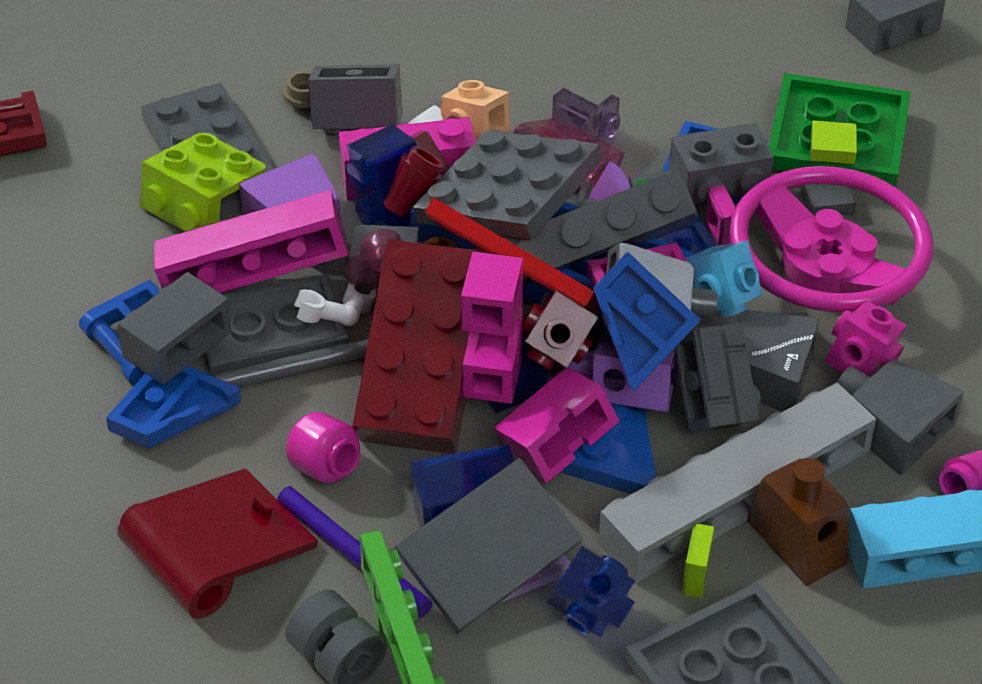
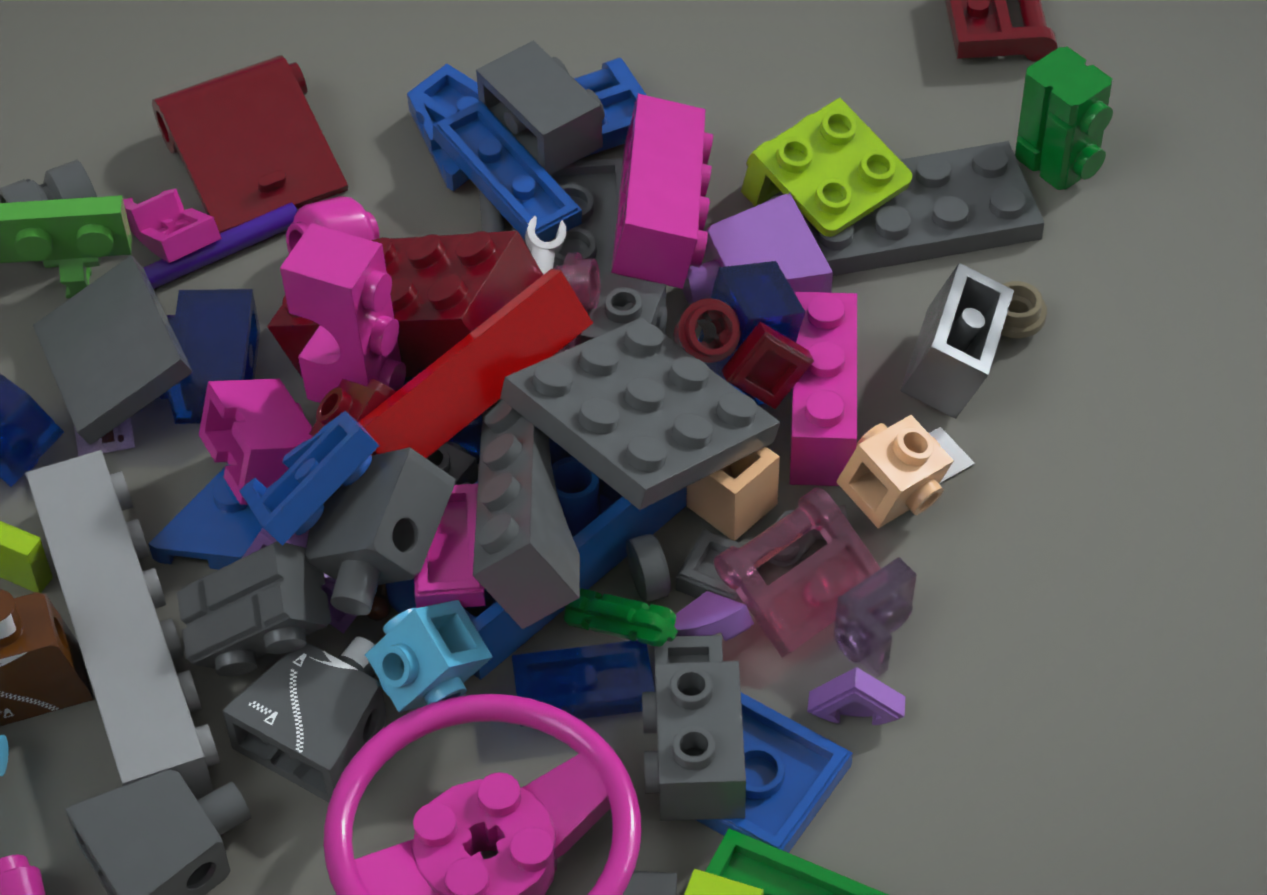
camera: 105 degrees right, 5 degrees up
(137, 61) = (1063, 118): none -> green brick
(235, 351) = (506, 172): none -> blue tile
(327, 561) = (168, 228): none -> dark pink slope
(649, 124) = (856, 695): none -> medium lavender tile
(719, 214) = (618, 727): dark pink tile -> none
(866, 339) = (279, 851): dark pink brick -> none

